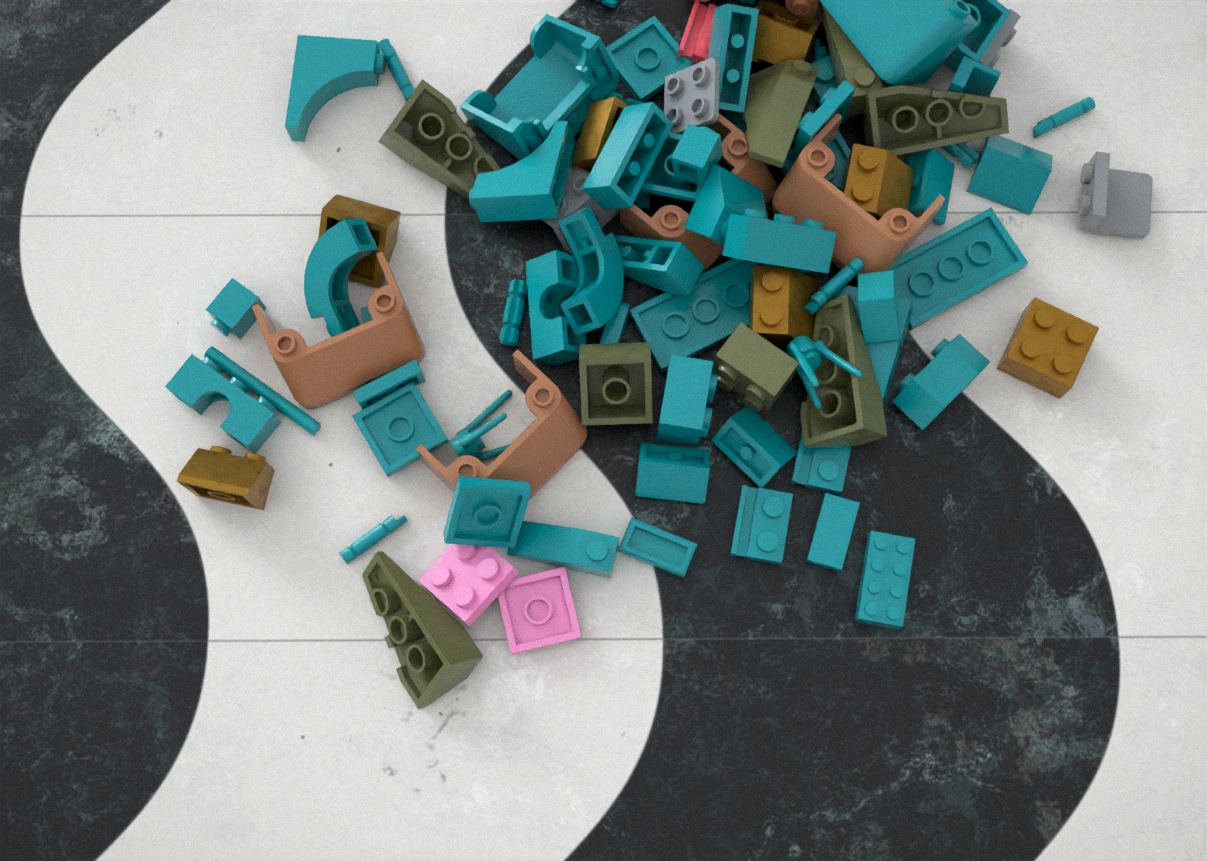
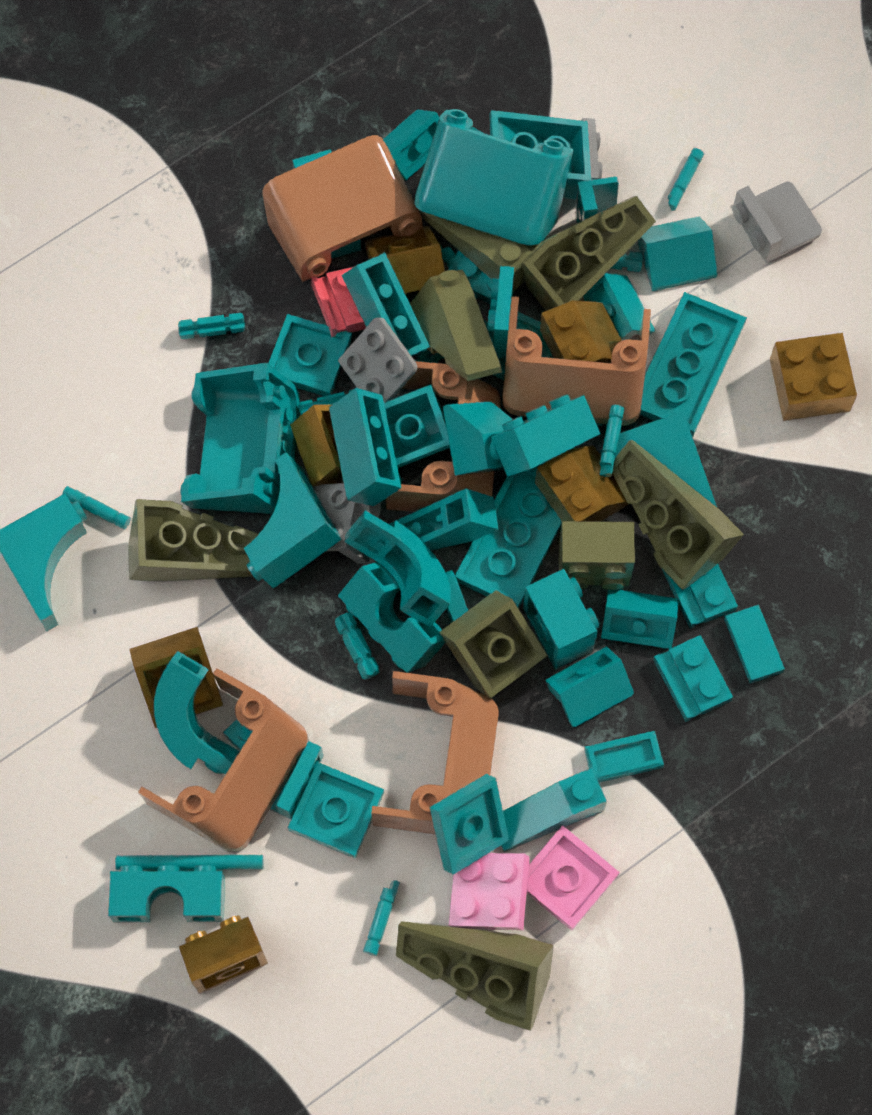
camera: 35 degrees left, 5 degrees down
(233, 309) = (114, 809): teal brick -> none
(468, 439) = (405, 780): teal plant -> none
(696, 153) = (423, 407): teal brick -> none
(809, 358) = (634, 511): teal plant -> none
(878, 307) = (661, 433): teal slope -> none
(885, 580) = (824, 653): teal piece -> none
(940, 381) = (749, 461): teal brick -> none

